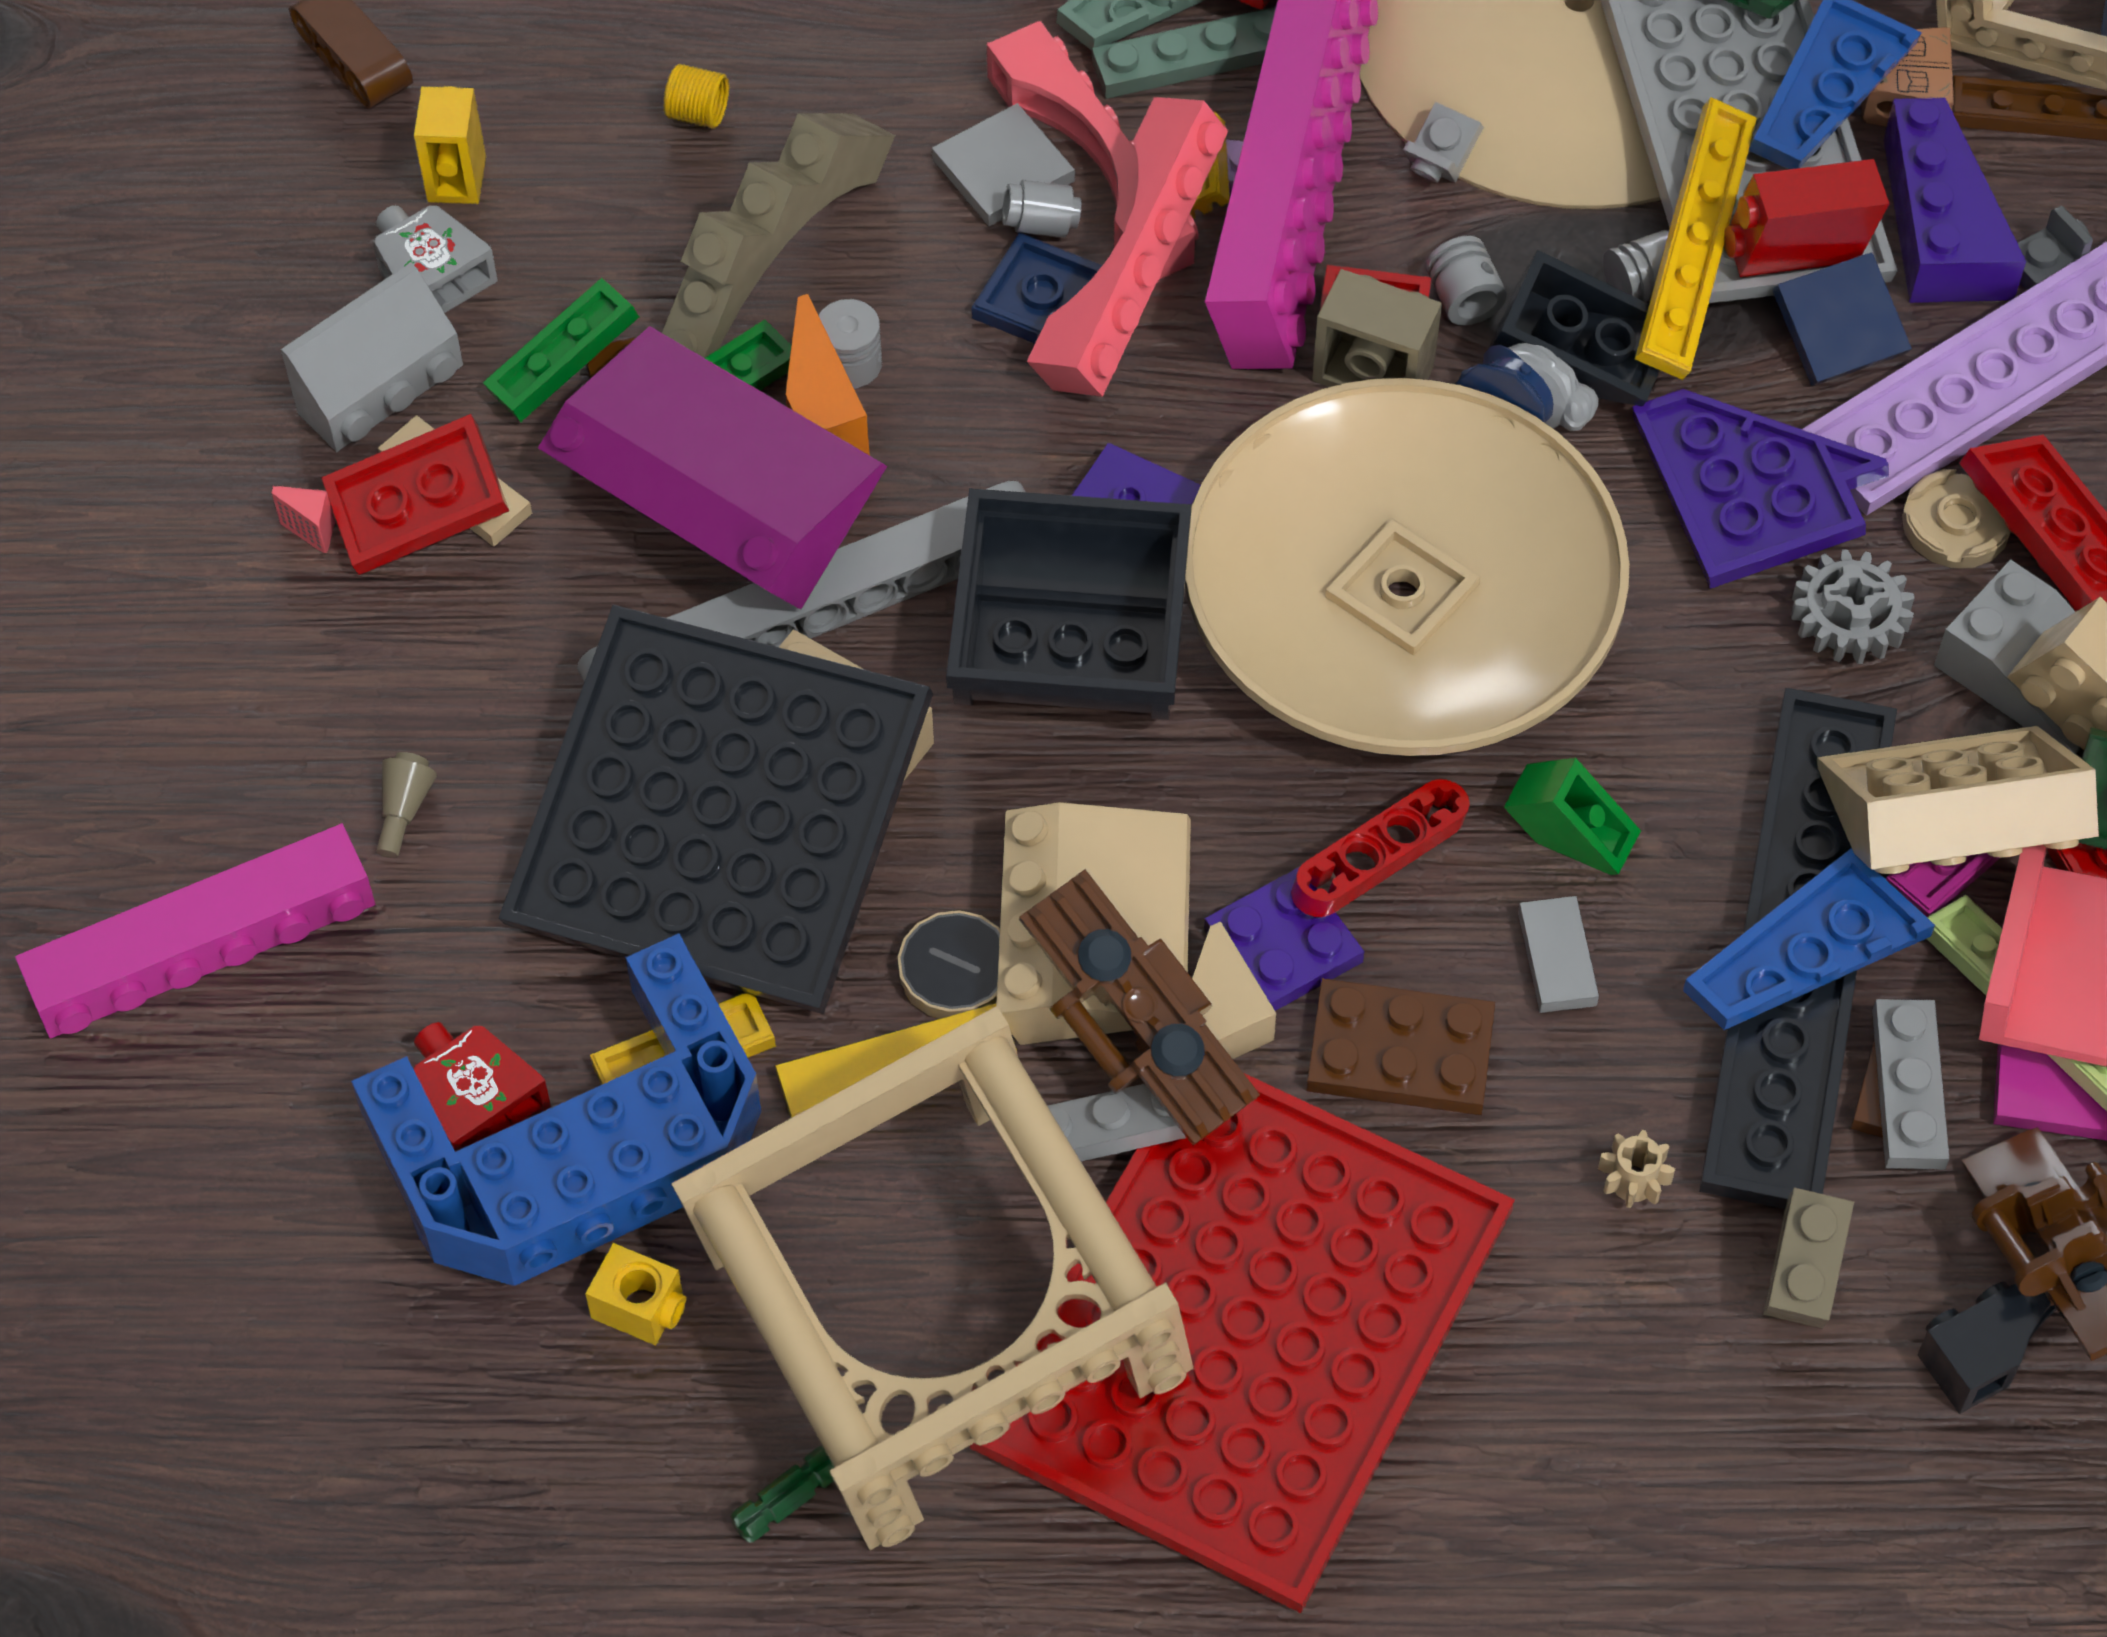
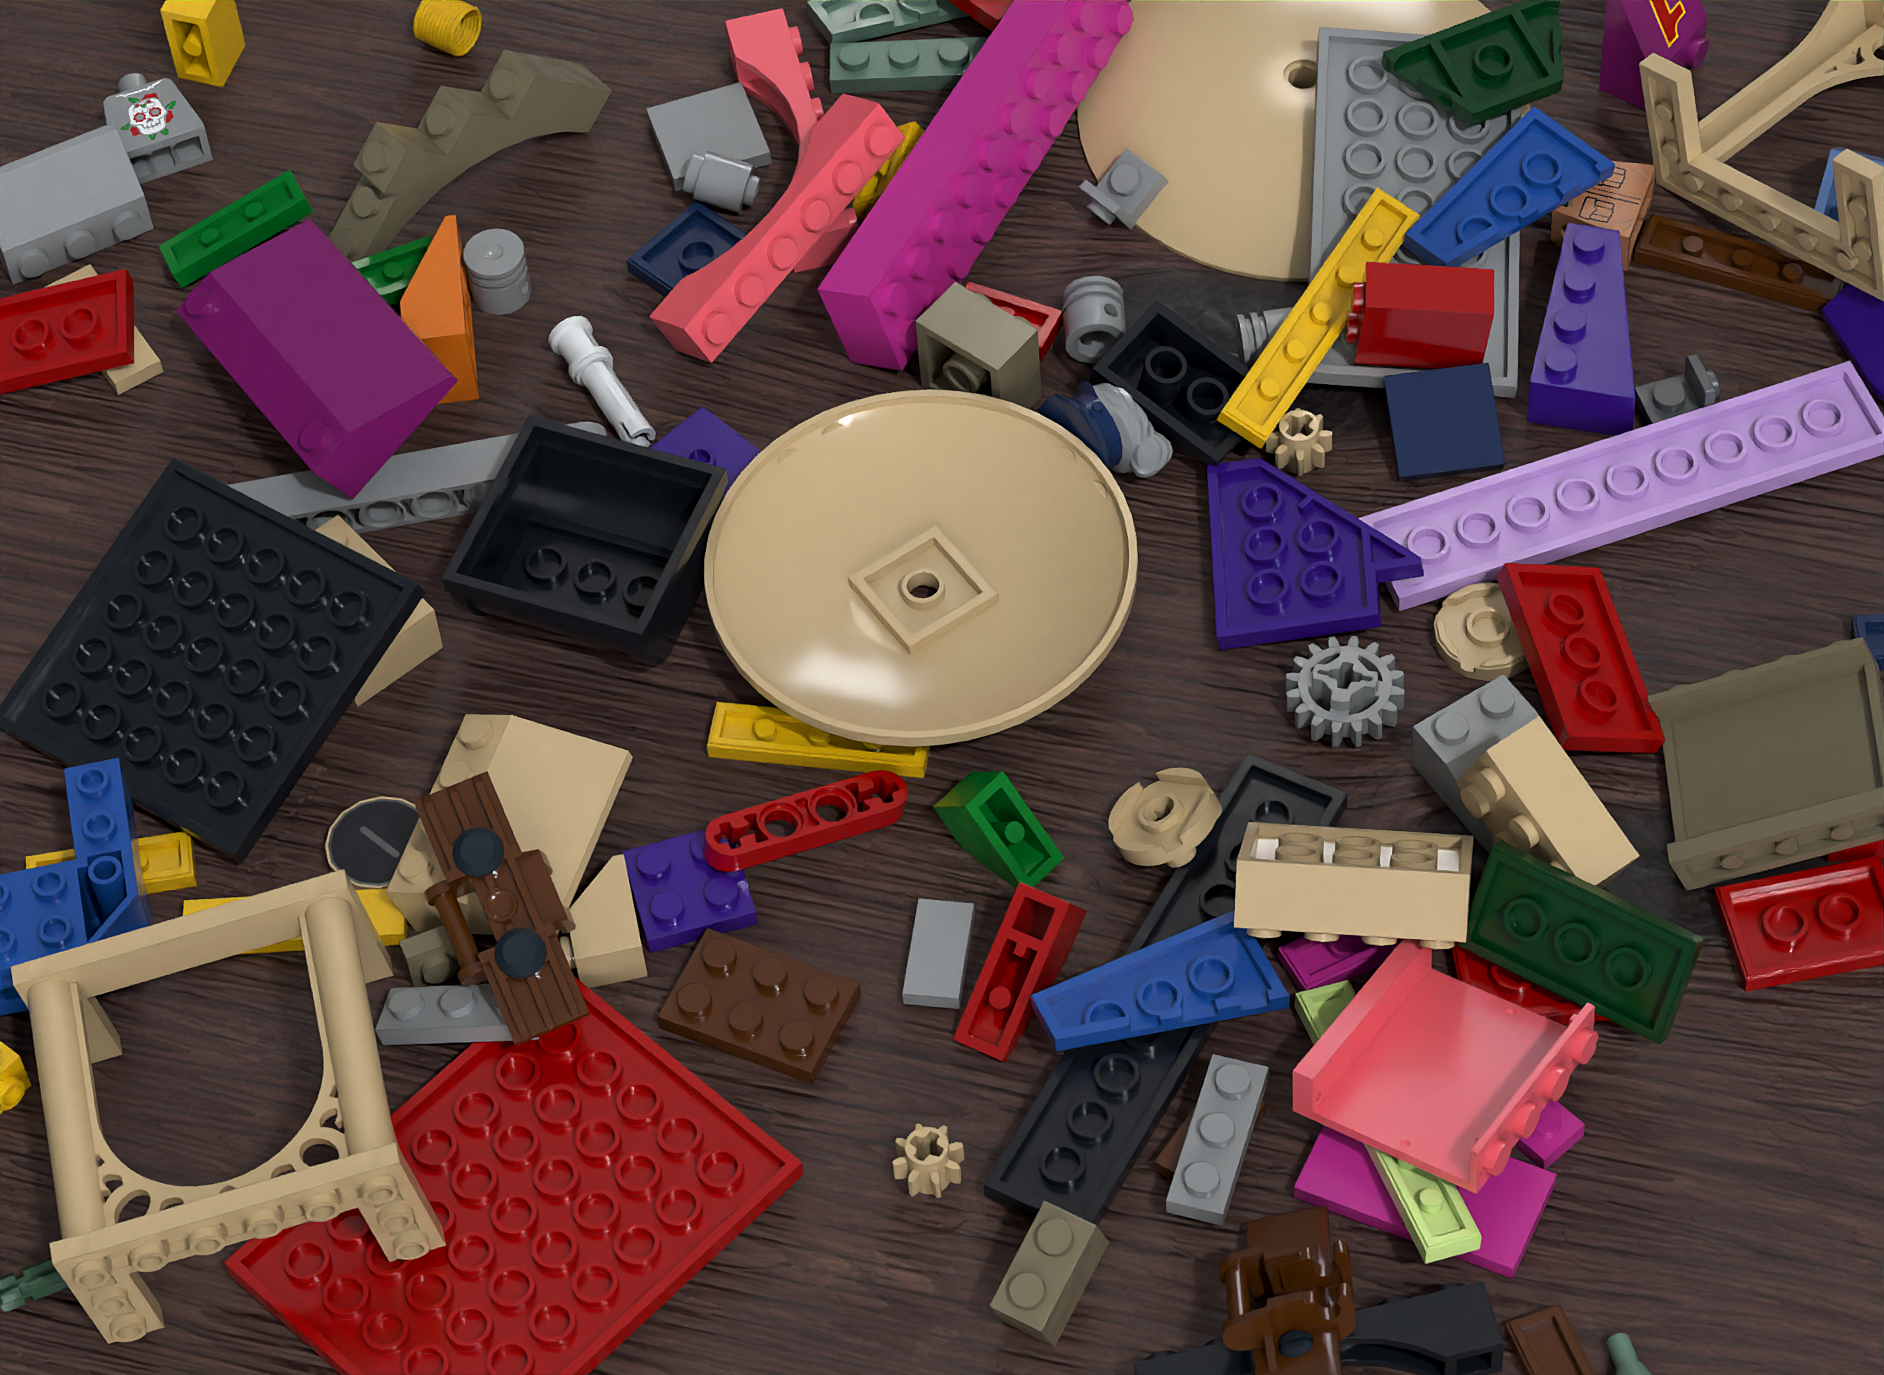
camera: 20 degrees right, 5 degrees down
(981, 424) = (592, 368): none -> white pin
(1059, 1067) = (429, 957): none -> dark tan plate
(1319, 766) = (779, 738): none -> yellow tile
(1649, 958) = (1021, 962): none -> red slope
(1714, 366) = (1299, 442): none -> tan gear
(1748, 792) = (1164, 818): none -> tan plate

